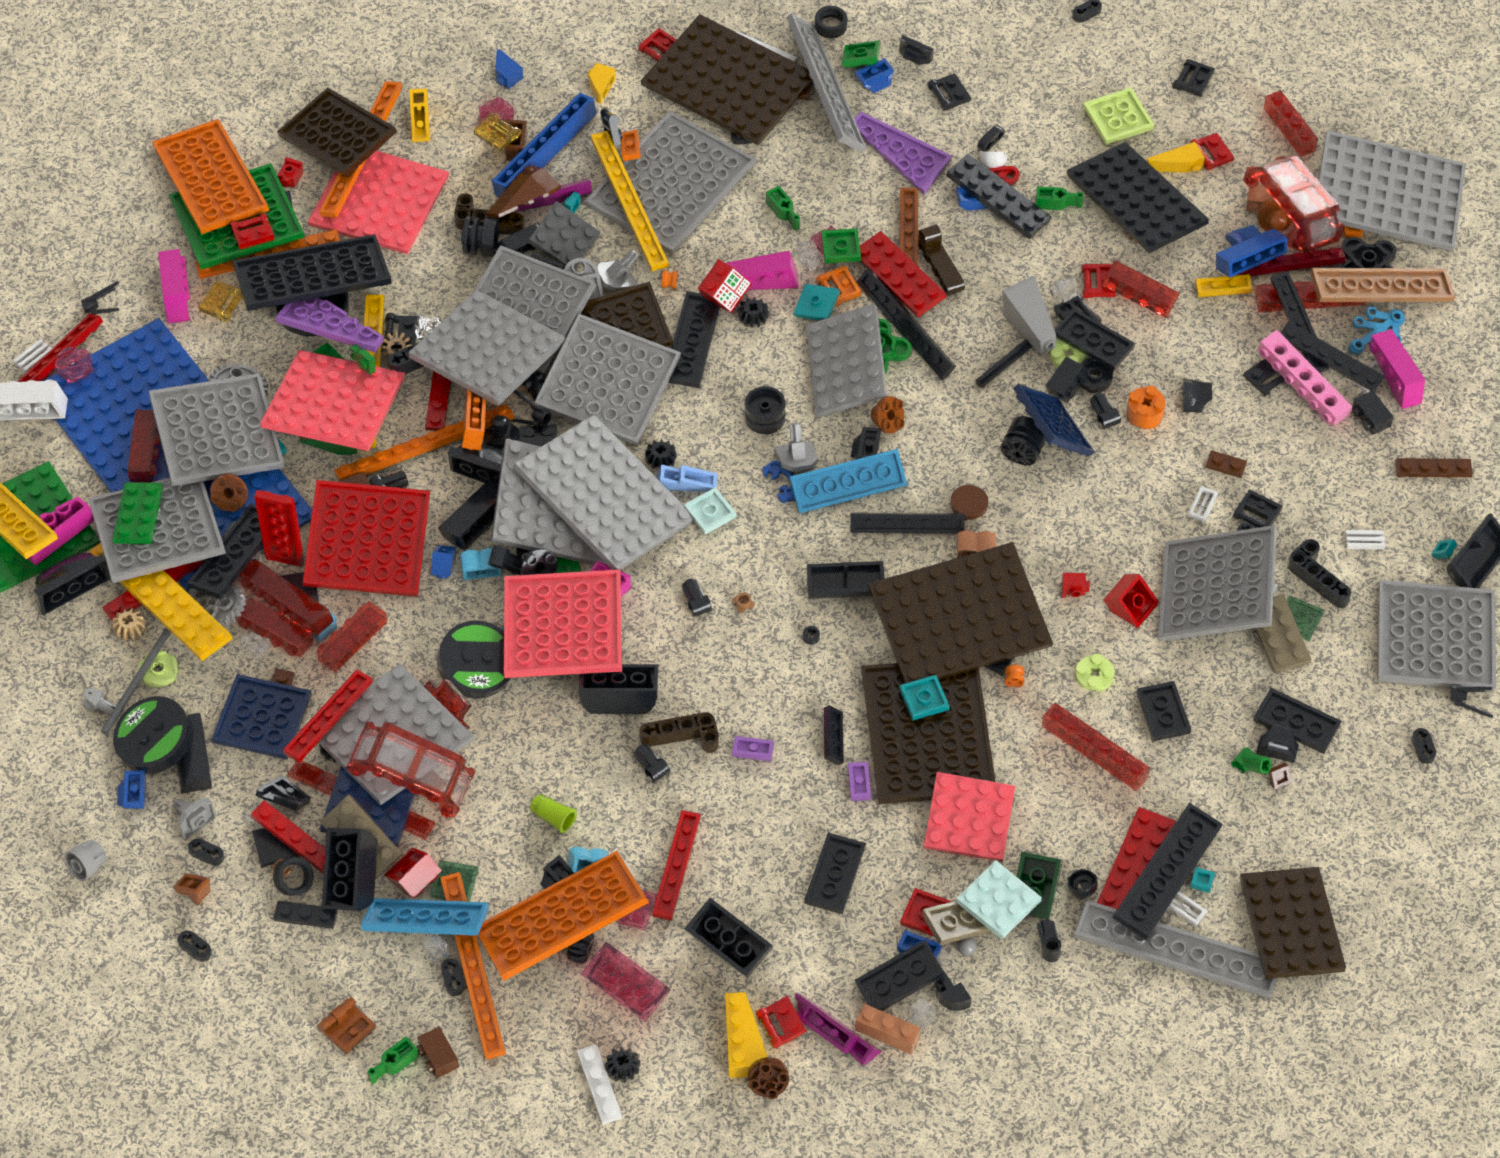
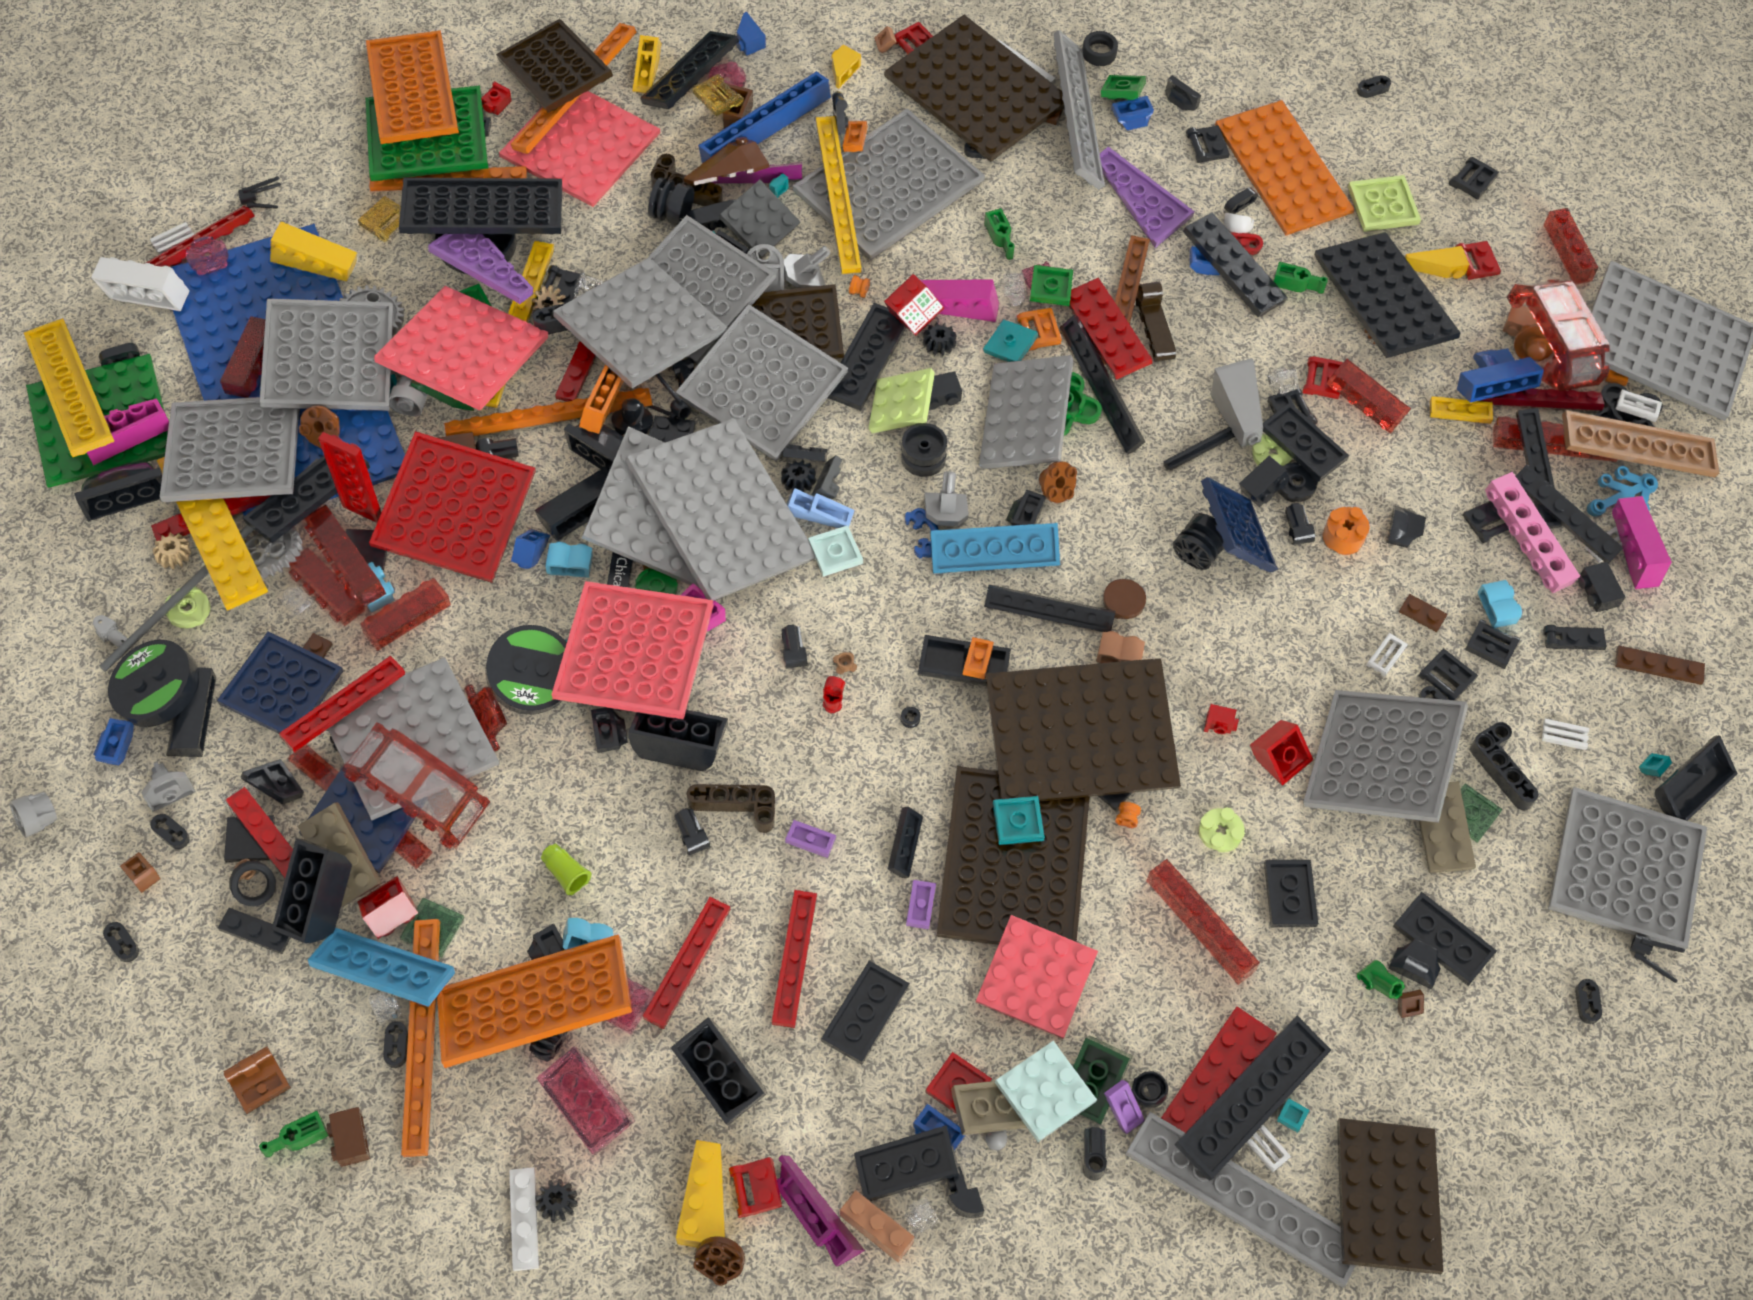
camera: 10 degrees right, 5 degrees up
(21, 466) = (118, 353): none -> black beam
(137, 513) = (214, 430): green plate -> none
(170, 344) = (311, 253): none -> yellow wedge
(174, 285) = (338, 193): dark pink wedge -> none
(254, 235) = (434, 155): red plate -> none
(296, 454) = (407, 399): none -> light grey piece
(364, 359) = (506, 309): green plate -> none
(460, 112) = (689, 70): none -> black plate
(502, 559) = (591, 561): black piece -> none
(539, 562) = (628, 573): black plate -> none
(555, 695) = (608, 729): none -> black slope
(632, 50) = (885, 39): none -> nougat plate
(669, 432) = (813, 453): none -> black plate
(685, 454) = (825, 485): none -> dark grey hinge
(734, 371) = (901, 400): none -> yellowish green plate
(741, 628) = (834, 690): none -> red connector
(764, 357) = (945, 390): none -> black brick
(765, 844) = (794, 959): none -> red plate
(858, 573) = (978, 658): none -> orange plate
(1022, 100) = (1284, 167): none -> orange plate
(1065, 899) = (1124, 1106): none -> medium lavender plate
(1287, 481) = (1490, 648): none -> black plate
(1289, 443) = (1499, 603): none -> medium azure brick
(1358, 459) = (1575, 638): none -> black plate
(1373, 253) = (1638, 408): none -> white tile

